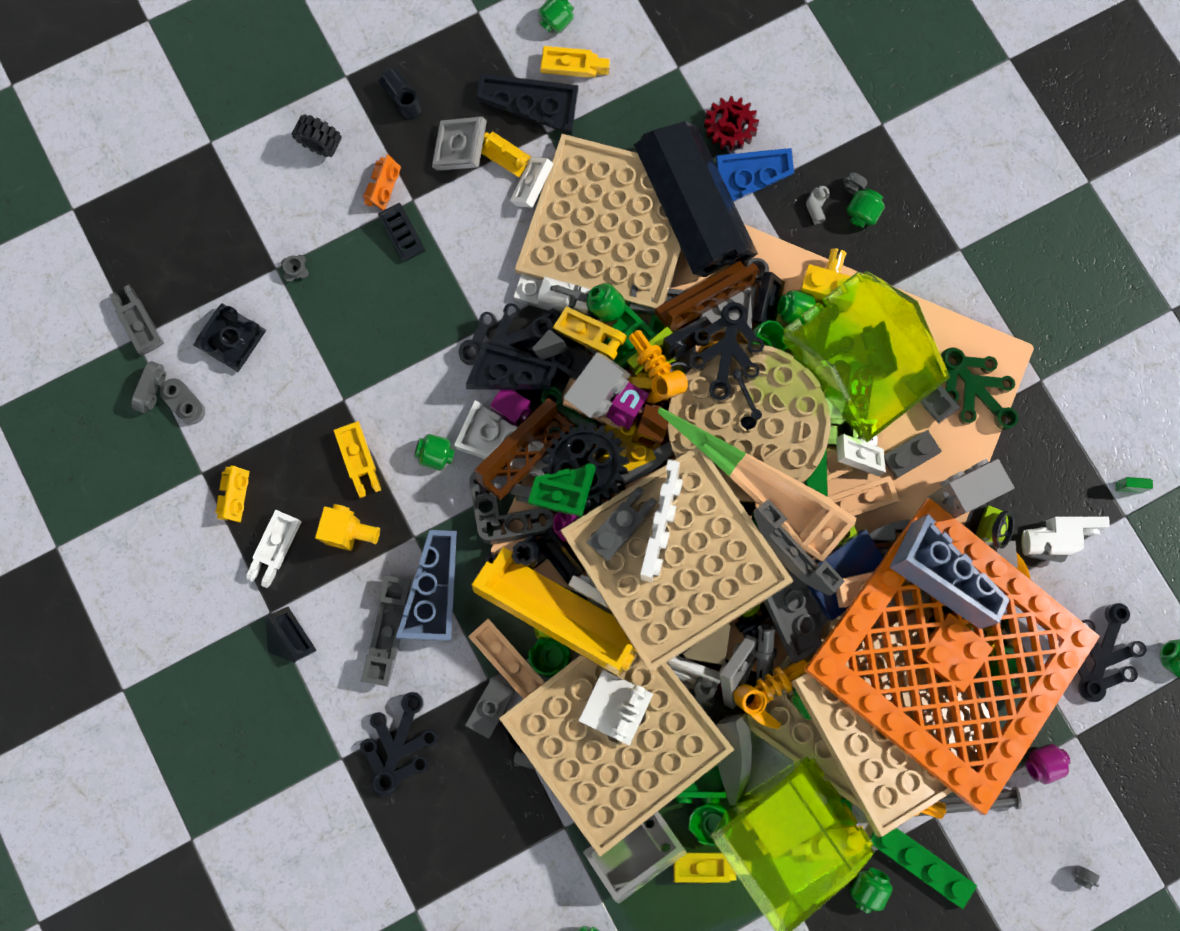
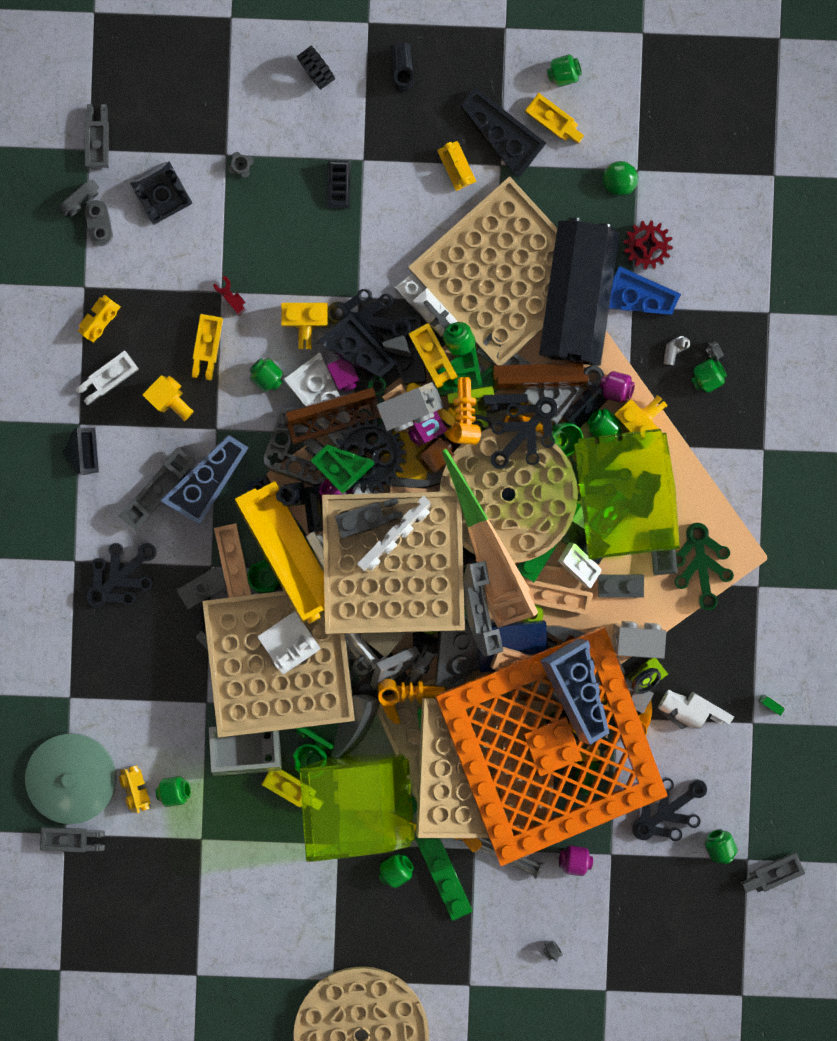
camera: 30 degrees right, 10 degrees up
(361, 398) = (235, 300): none -> dark red plate
(385, 174) = (353, 126): orange hinge -> none
(440, 374) = (304, 318): none -> yellow brick
(459, 143) = (424, 137): light grey plate -> none
(531, 182) = (462, 202): white plate -> none
(667, 80) = (620, 178): none -> green hair
(755, 414) = (516, 492): black hinge -> none
(787, 264) = (617, 386): none -> magenta head

